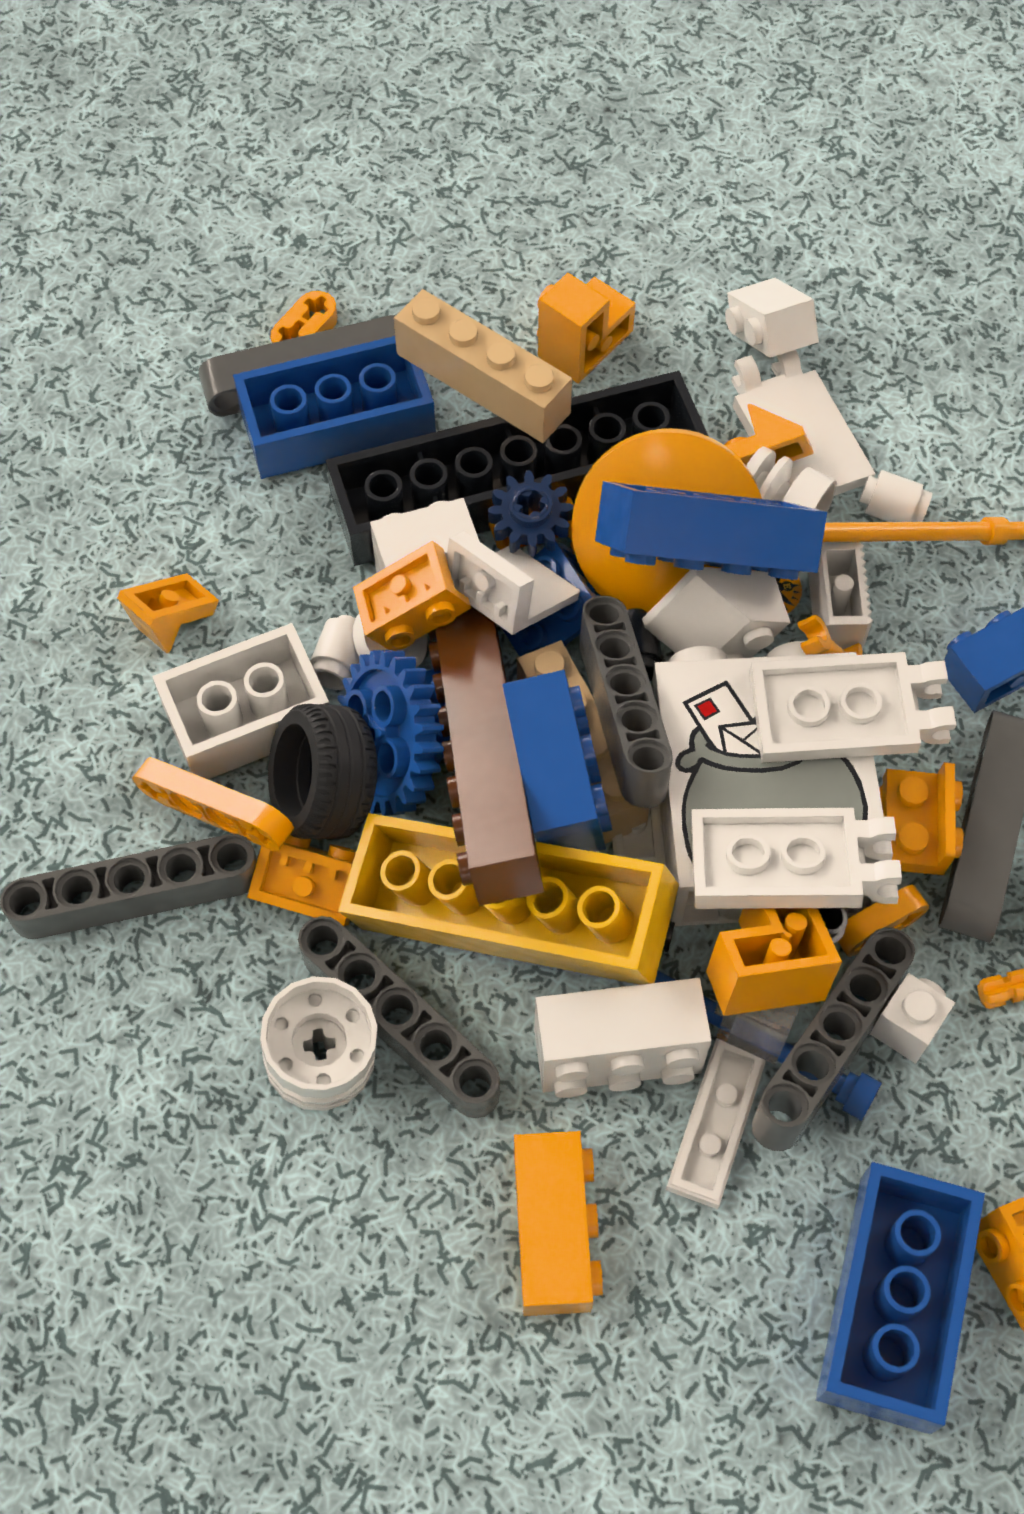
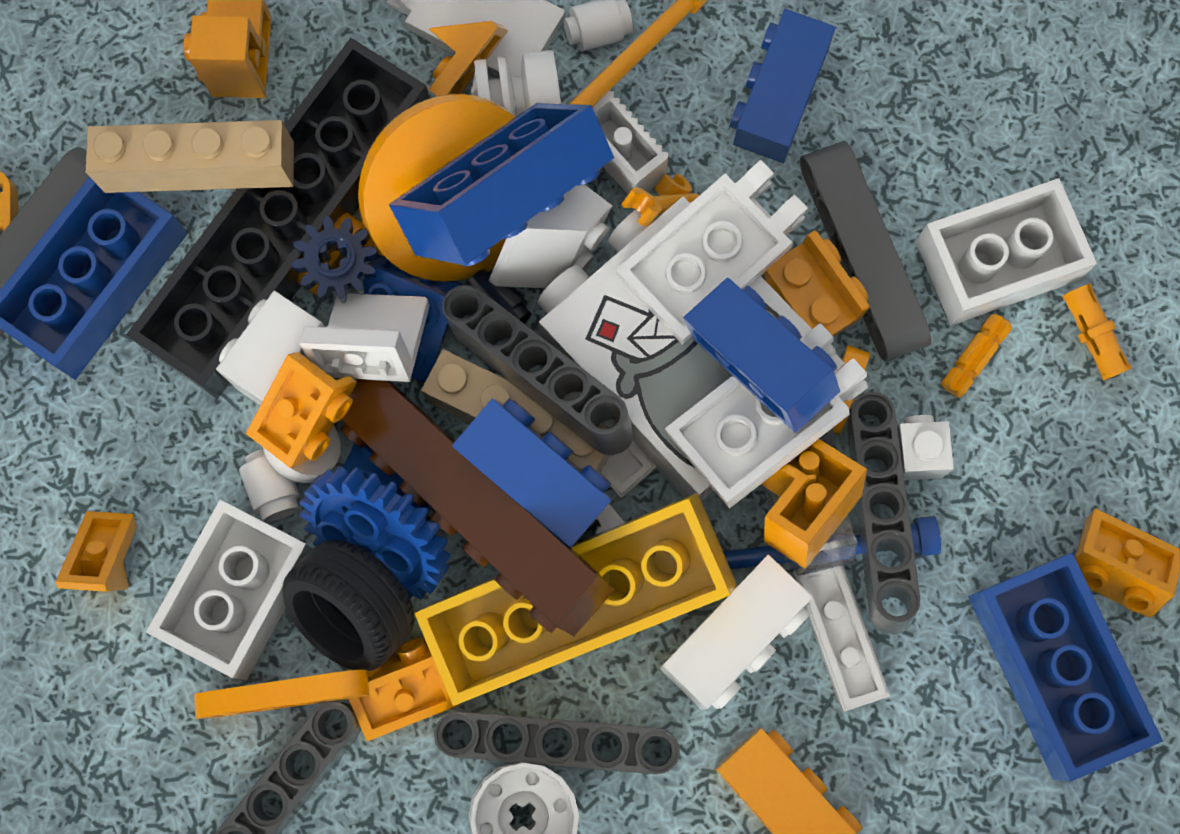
camera: 35 degrees left, 15 degrees up
(823, 800) = (764, 353): none -> blue brick

